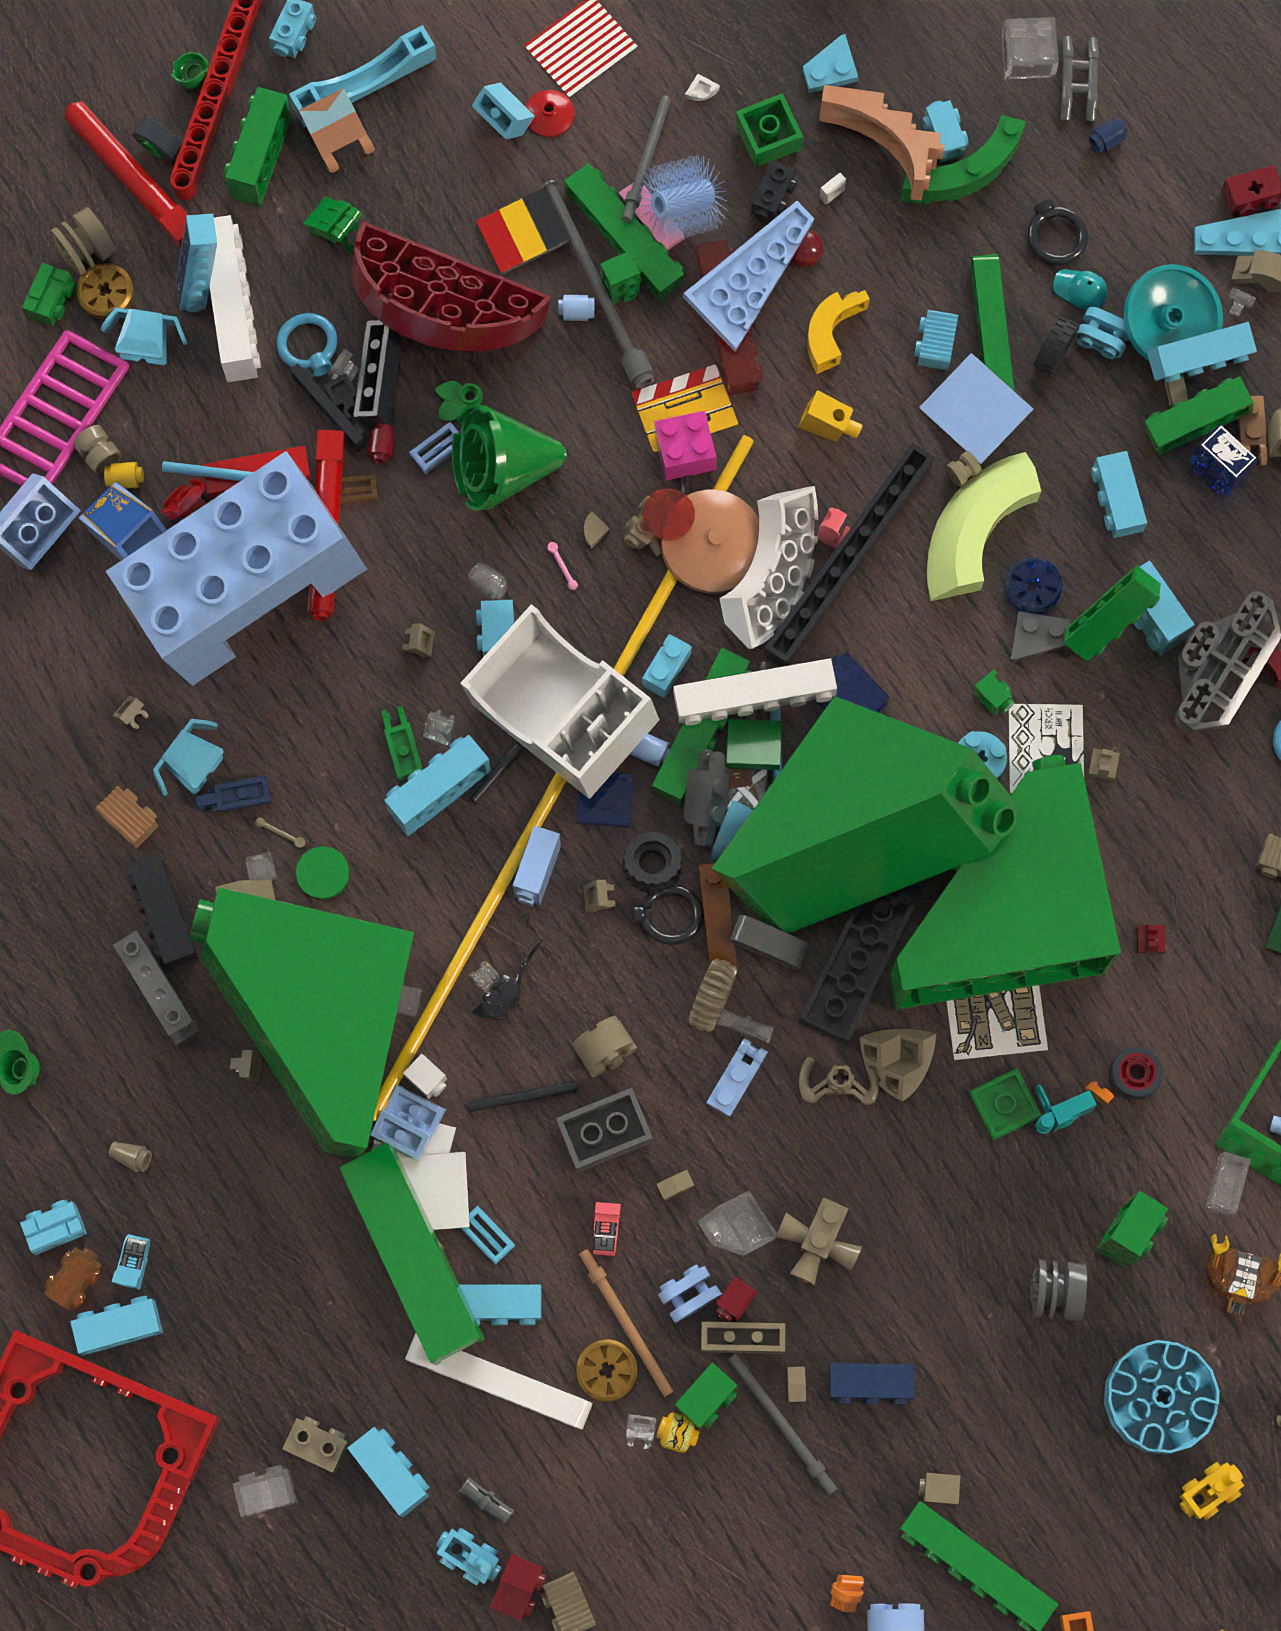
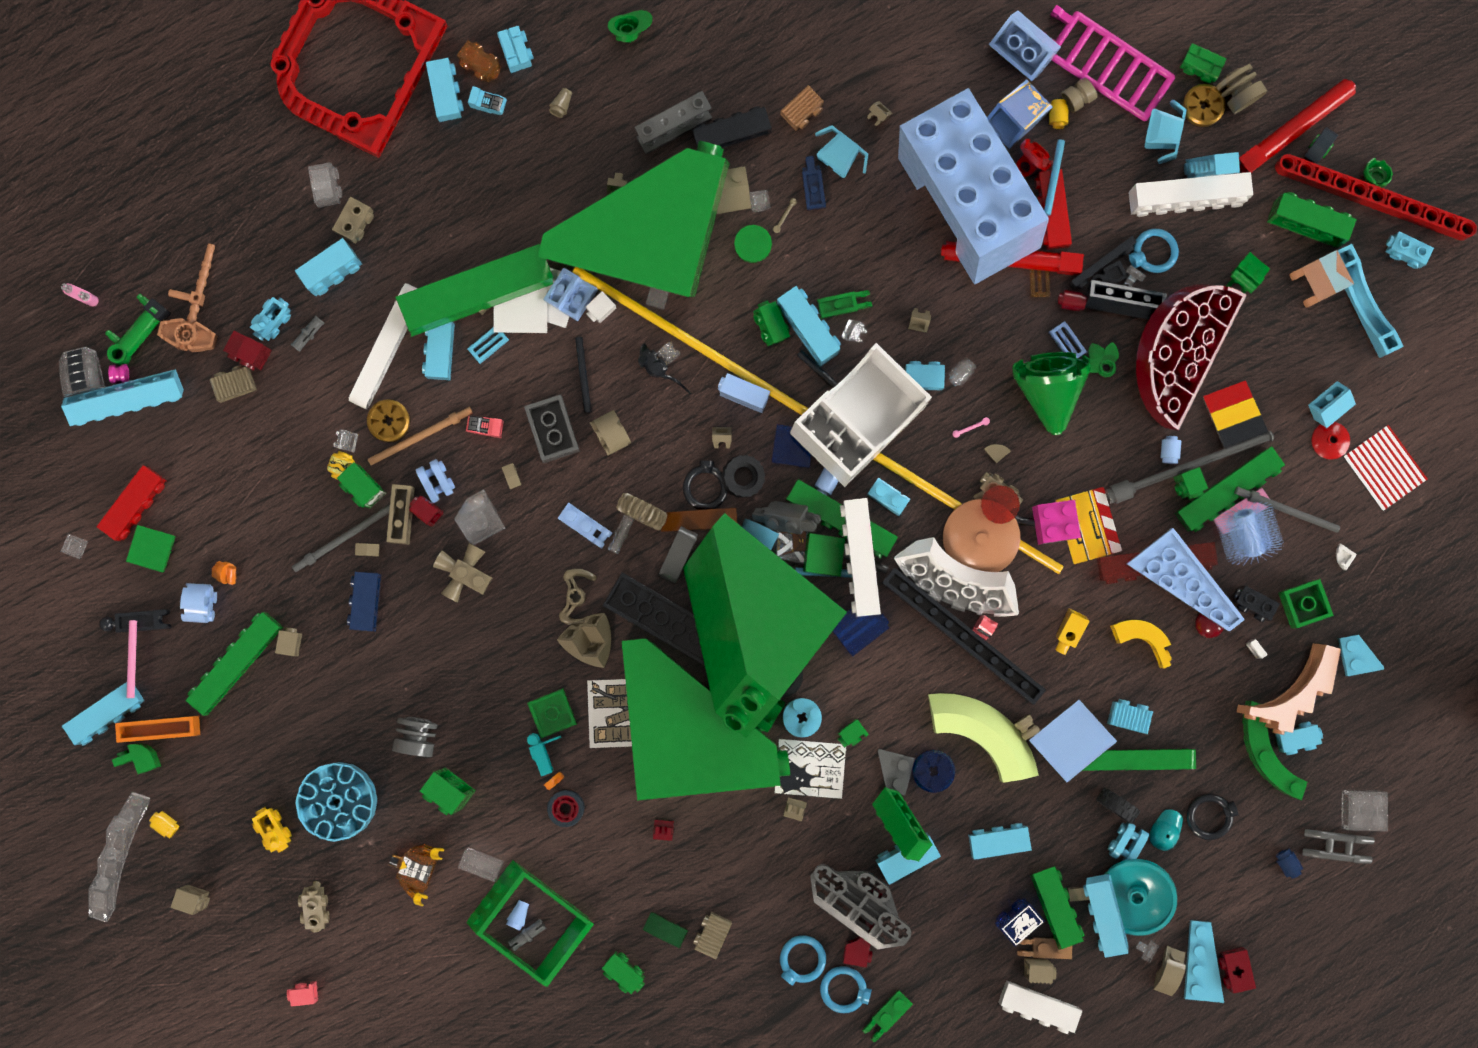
camera: 95 degrees right, 10 degrees up
(435, 837) = (771, 323): none -> green brick

